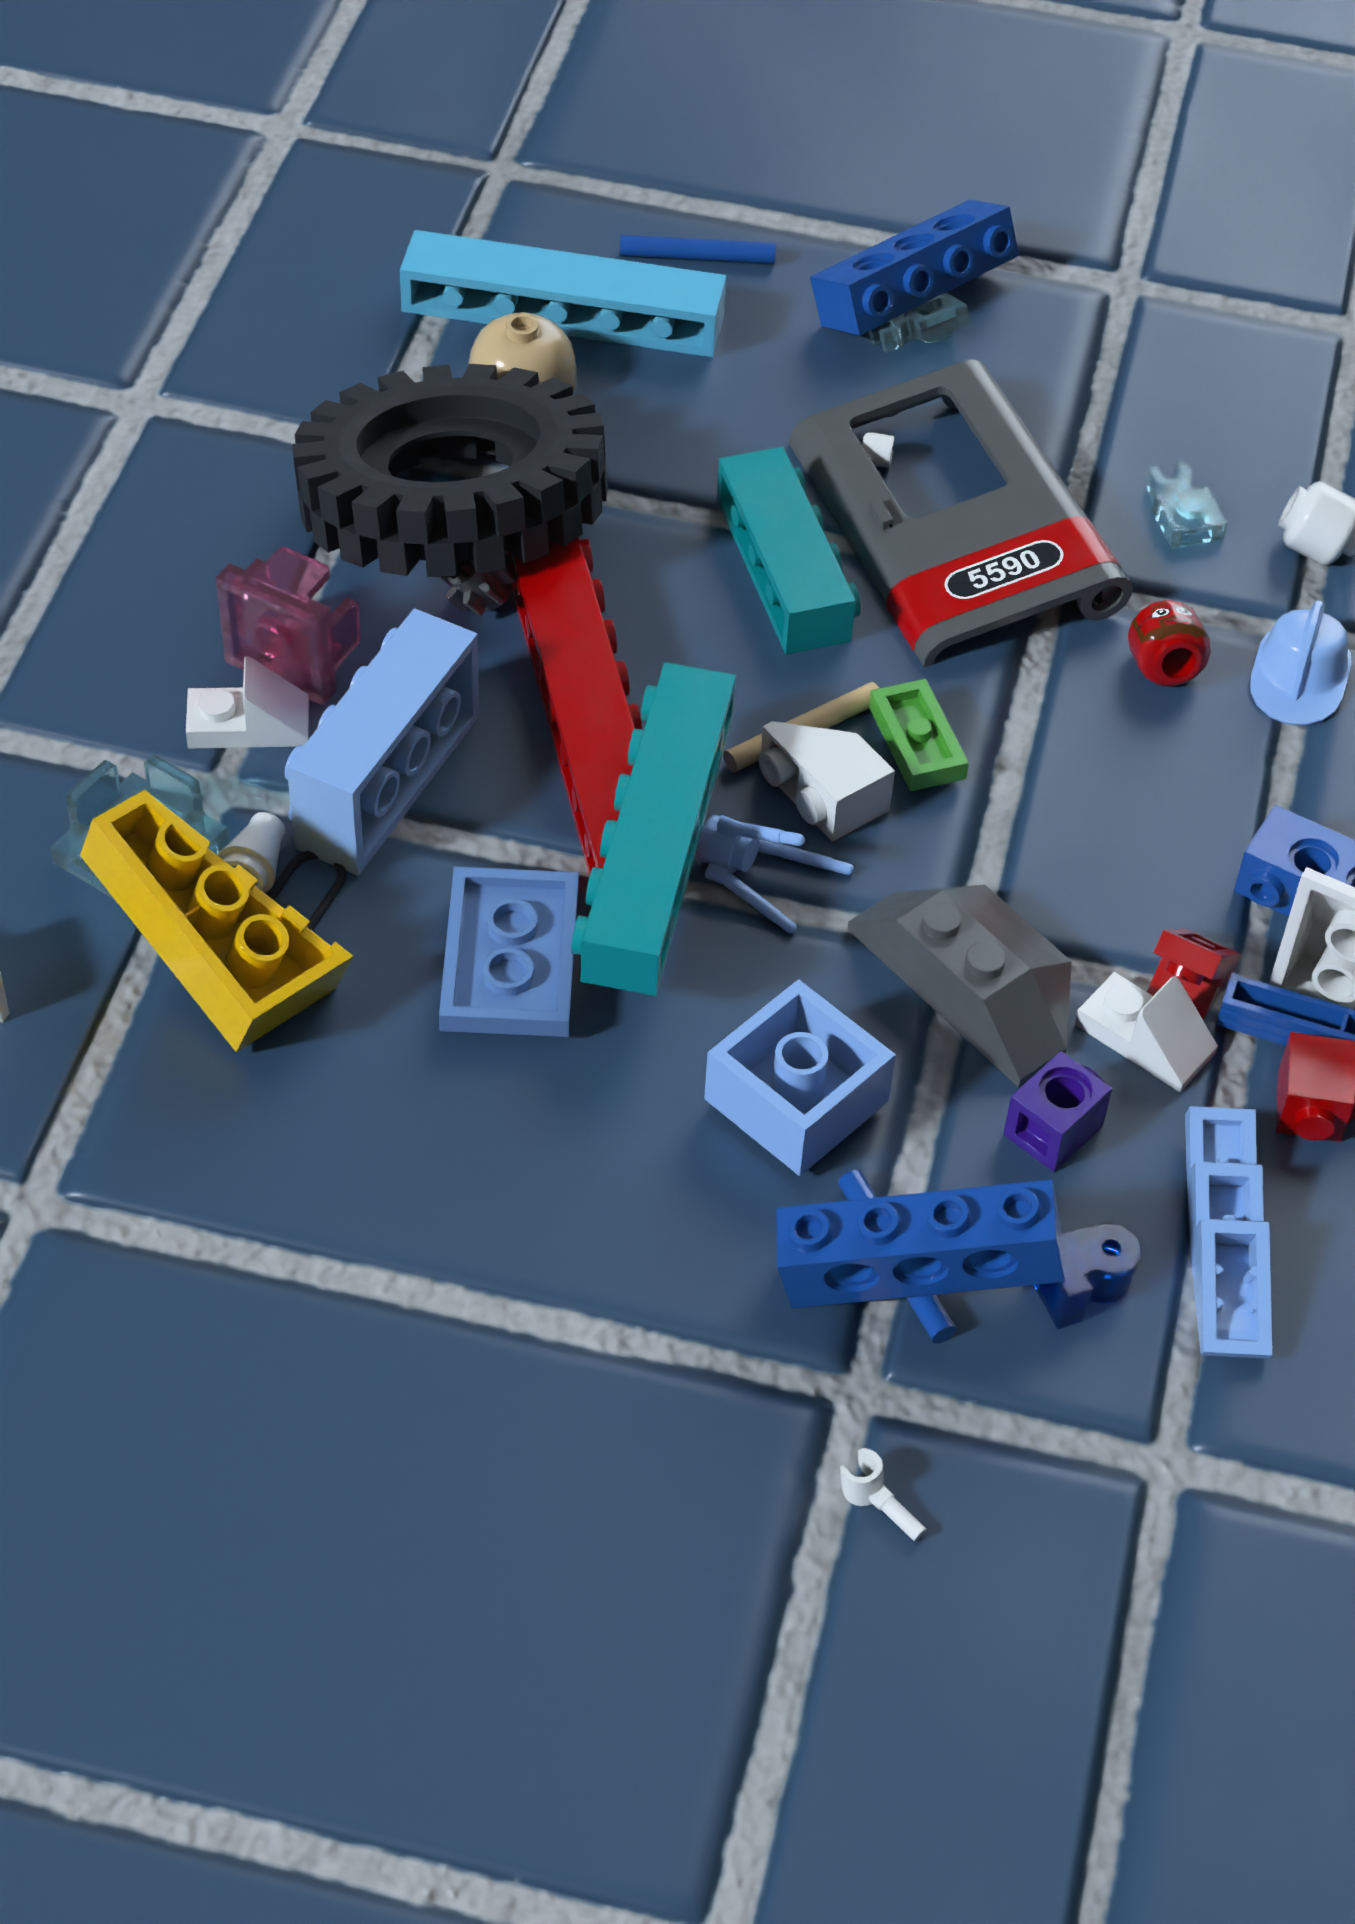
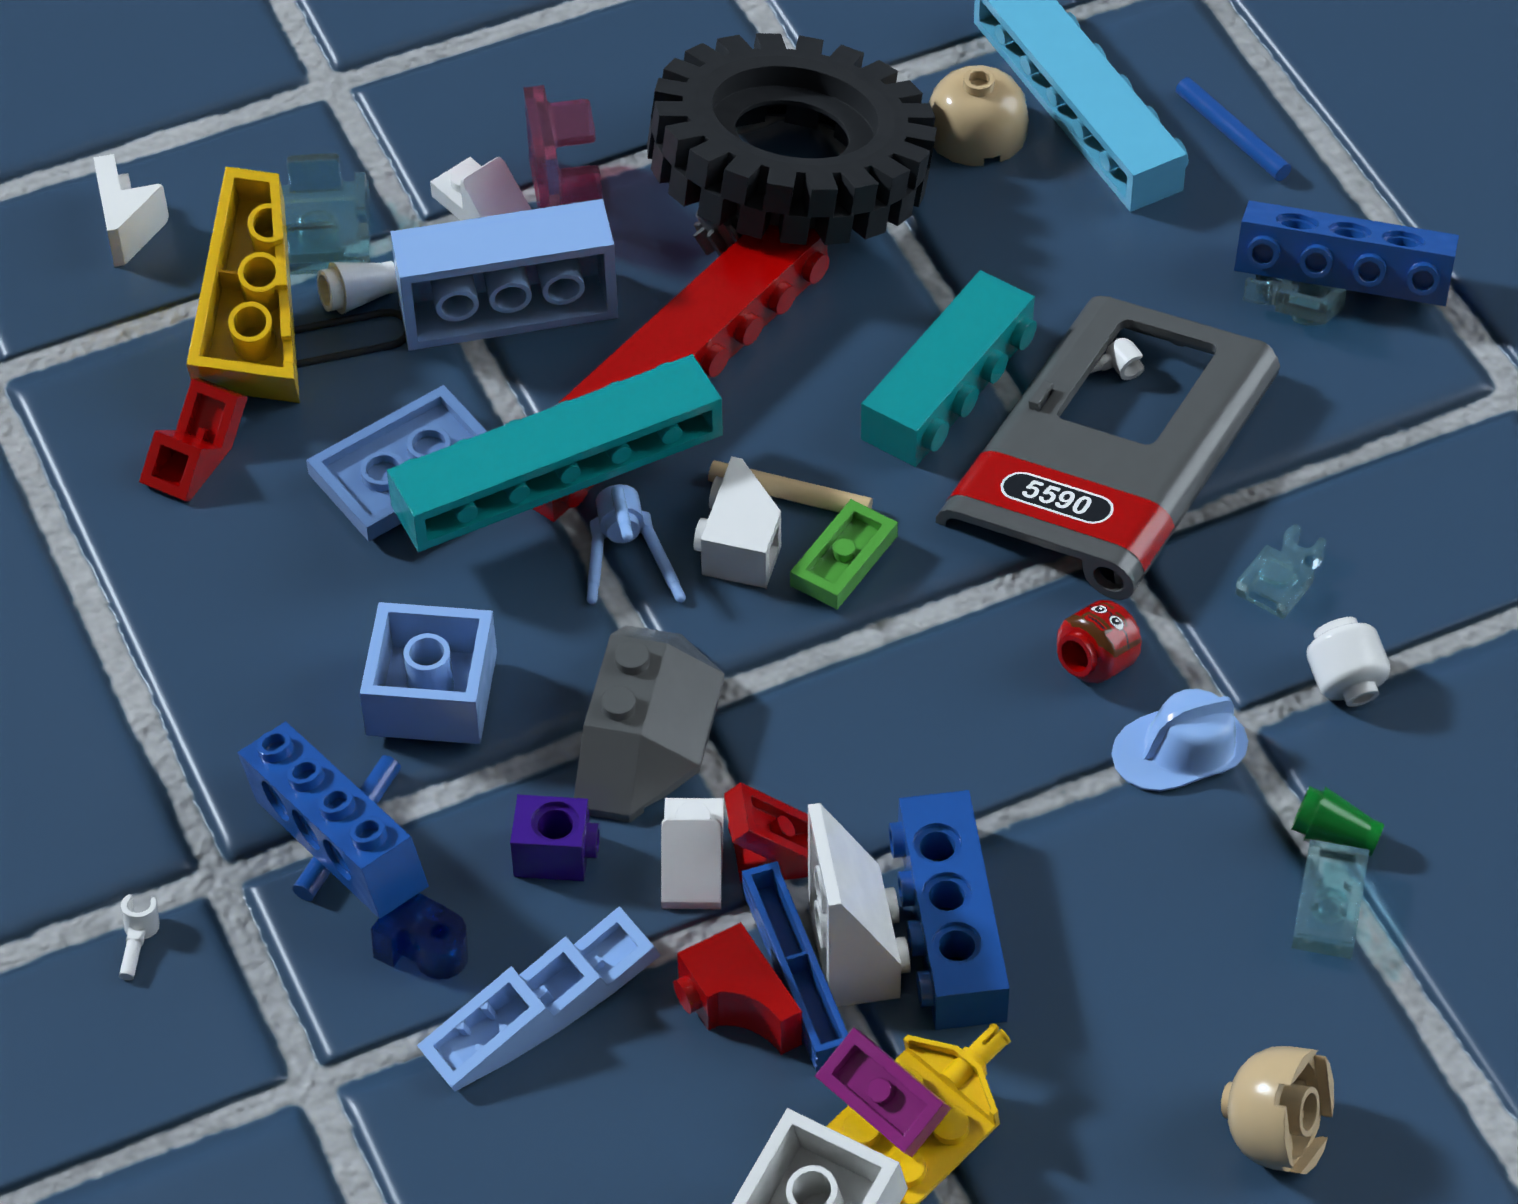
camera: 55 degrees right, 0 degrees up
(311, 1088) = (205, 433): none -> red slope

